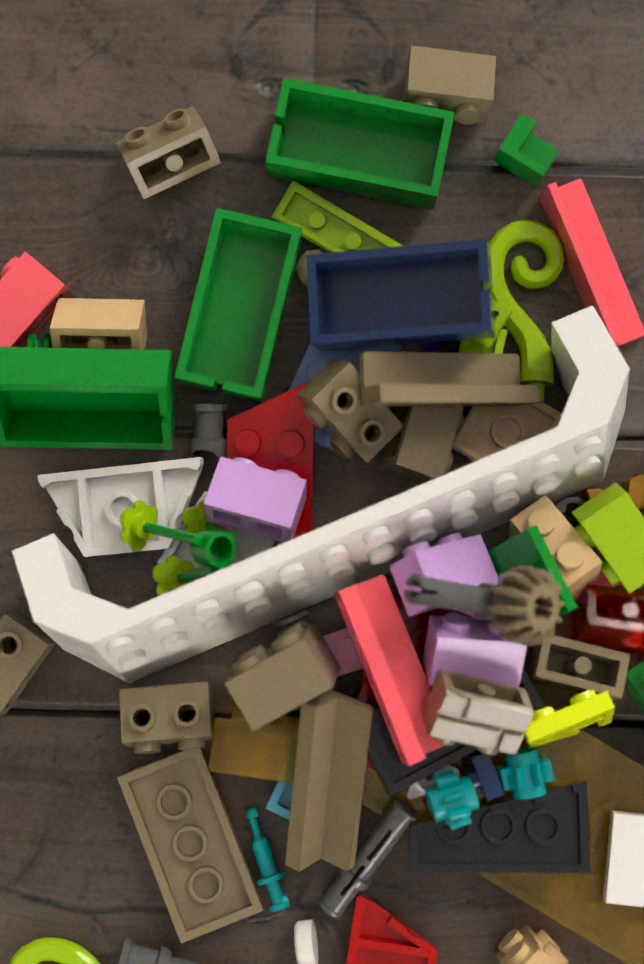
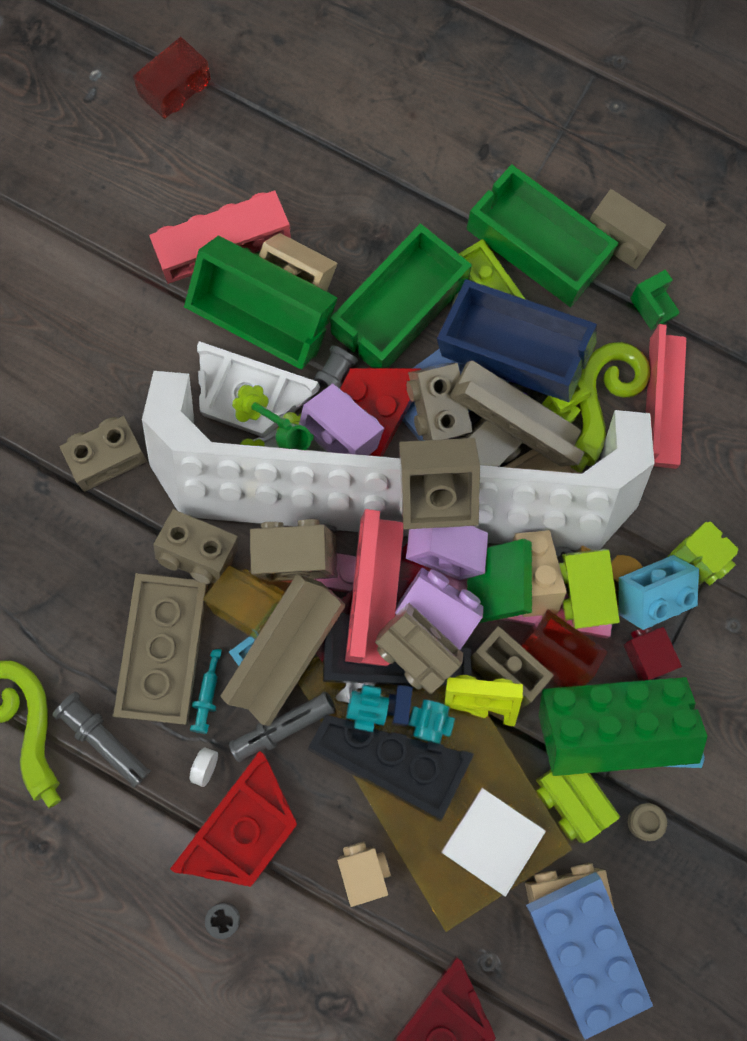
camera: 25 degrees right, 10 degrees down
(168, 151) = (407, 177): dark tan brick -> none
(409, 525) = (439, 483): none -> dark tan slope
(451, 595) = (465, 570): dark grey pin -> none
(526, 605) = (494, 585): dark tan gear -> none

